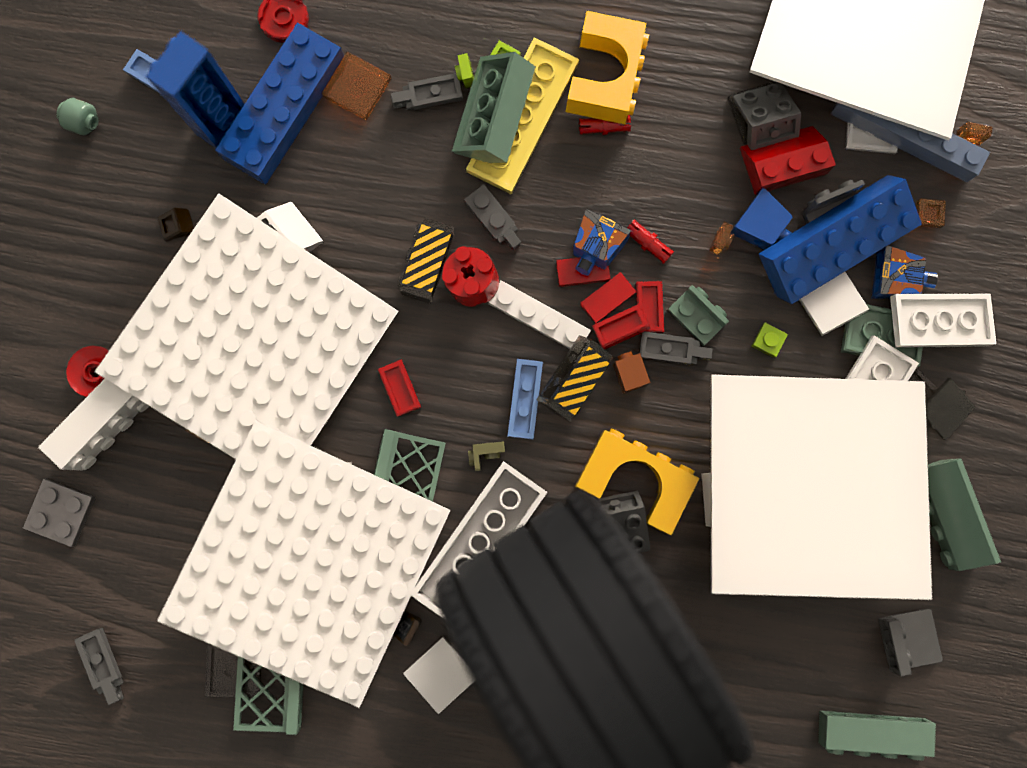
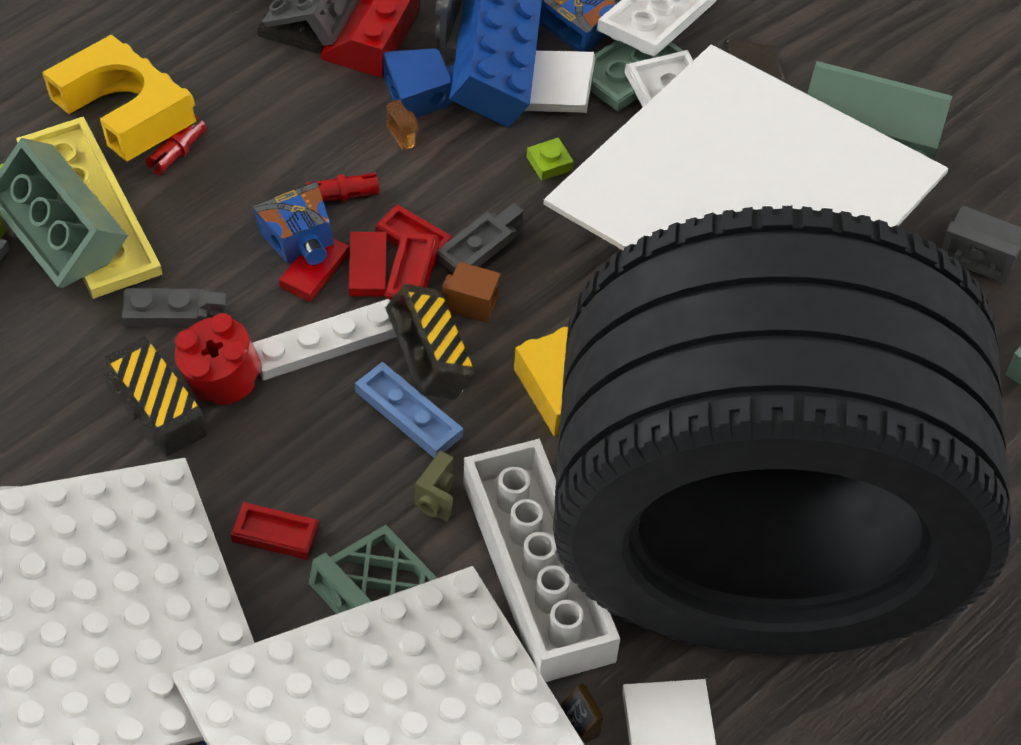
camera: 55 degrees left, 30 degrees down
(698, 314) = (463, 194): sand green bracket -> none

